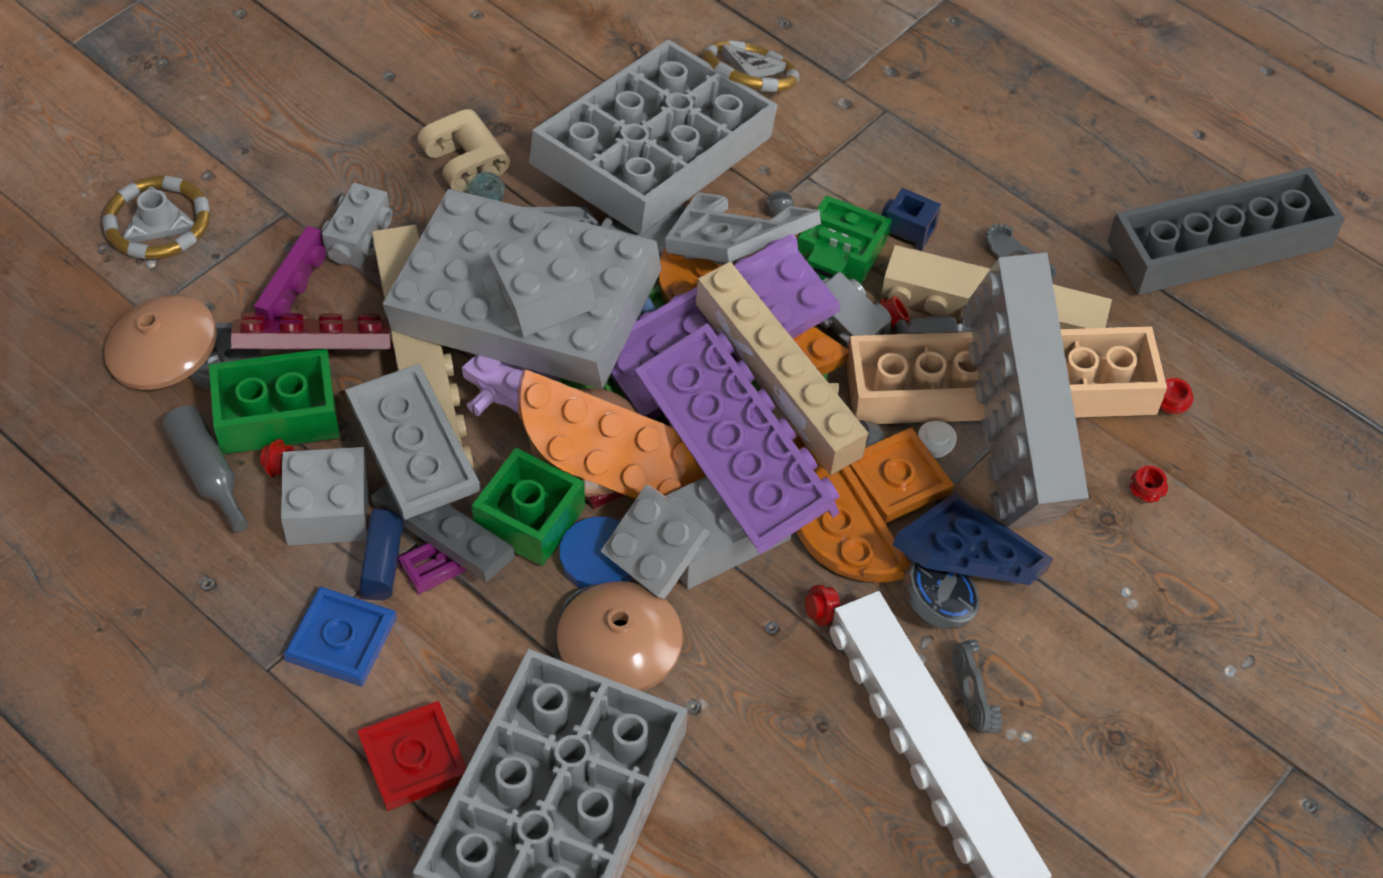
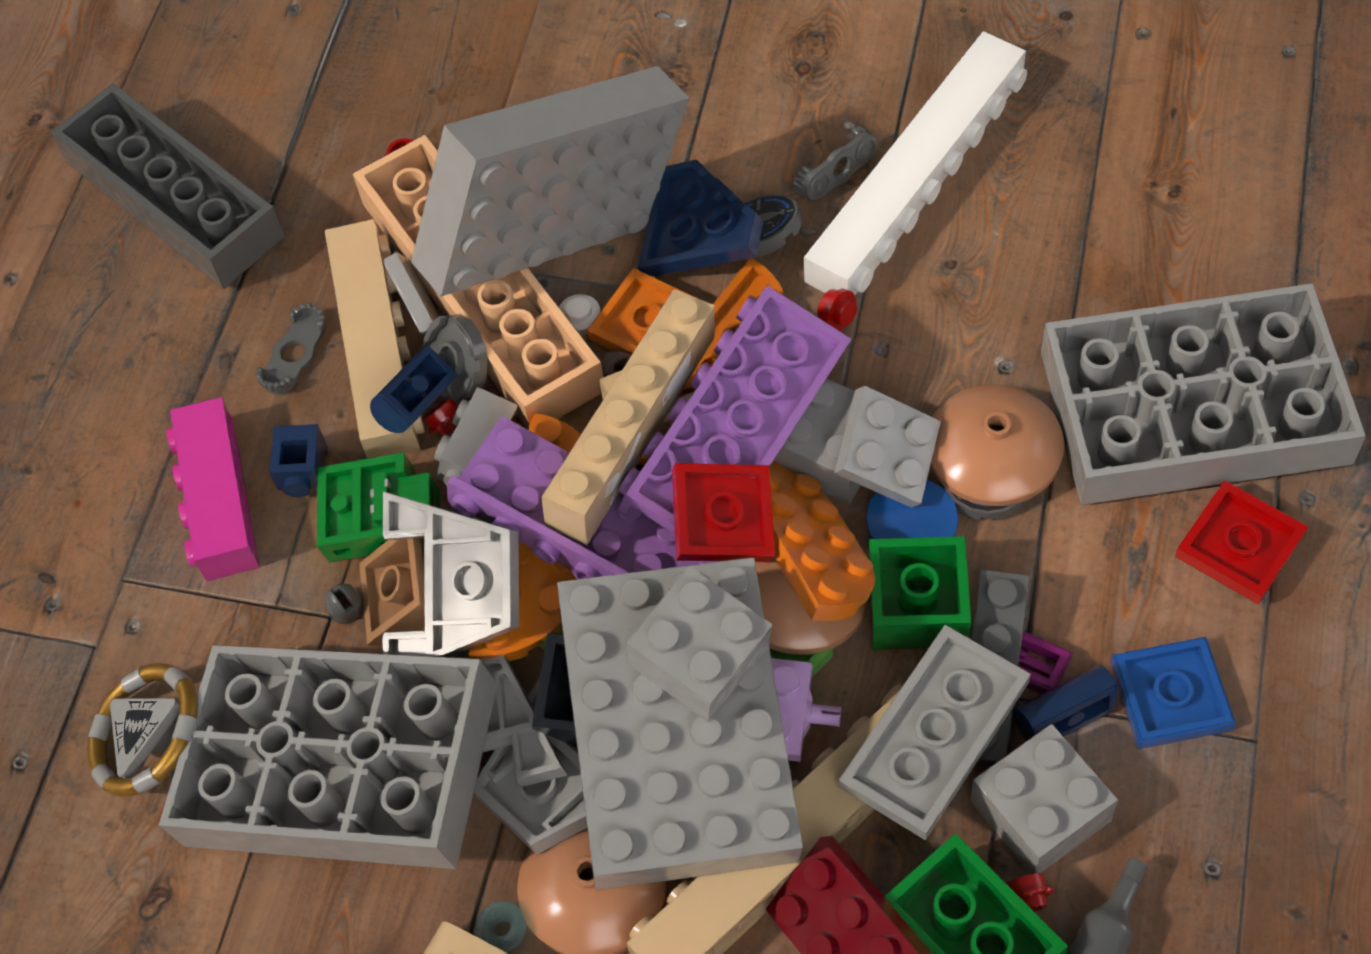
camera: 110 degrees left, 5 degrees up
(653, 375) = (722, 512): none -> red plate
(910, 279) = (412, 391): none -> dark blue brick
(920, 167) = (212, 489): none -> dark pink brick

